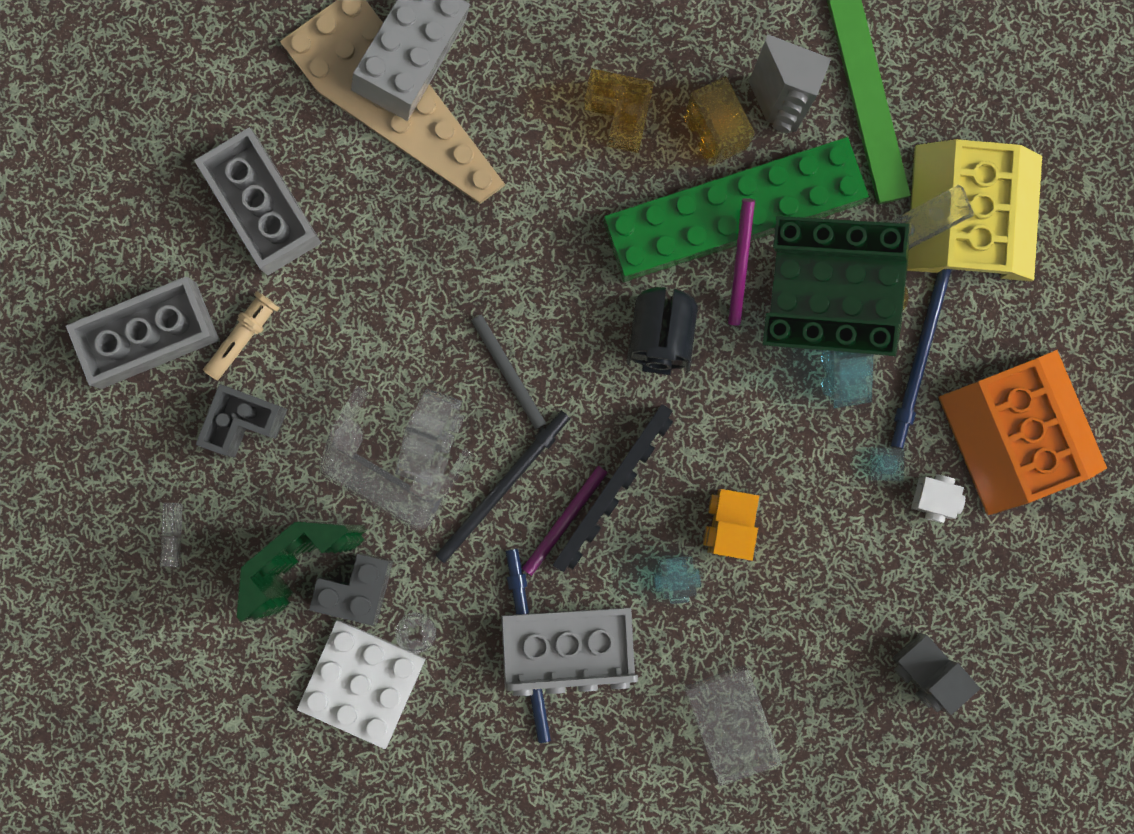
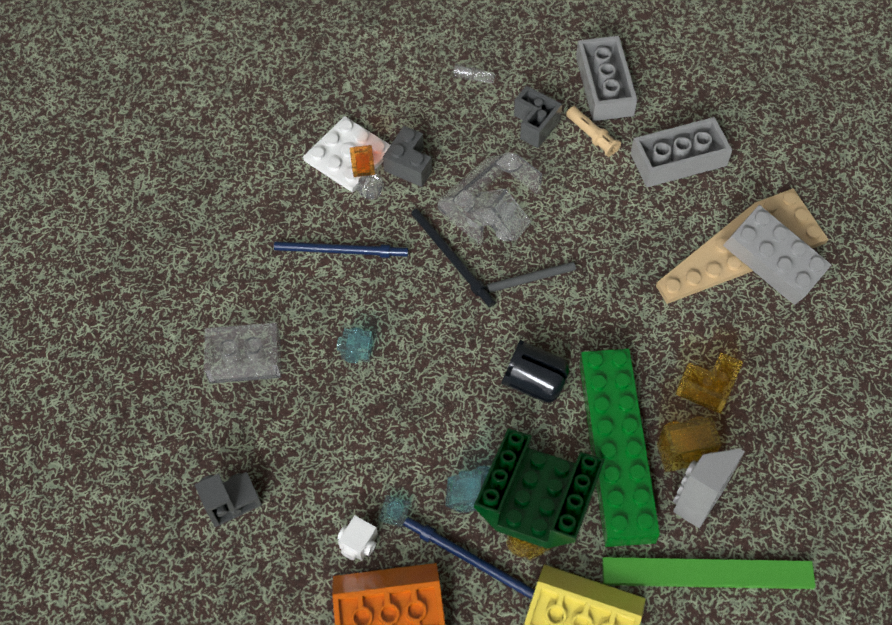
camera: 105 degrees right, 25 degrees down
(261, 587) = (437, 105): dark green slope -> none
(388, 653) = (362, 161): none -> clear orange slope
(564, 520) = (418, 289): magenta piece -> none
(568, 650) = (328, 266): light grey bracket -> none
(622, 478) = (436, 324): black plate -> none
(732, 524) = (378, 387): light orange brick -> none
(741, 261) = (576, 433): magenta bar -> none
(936, 215) = (578, 577): clear tile -> none

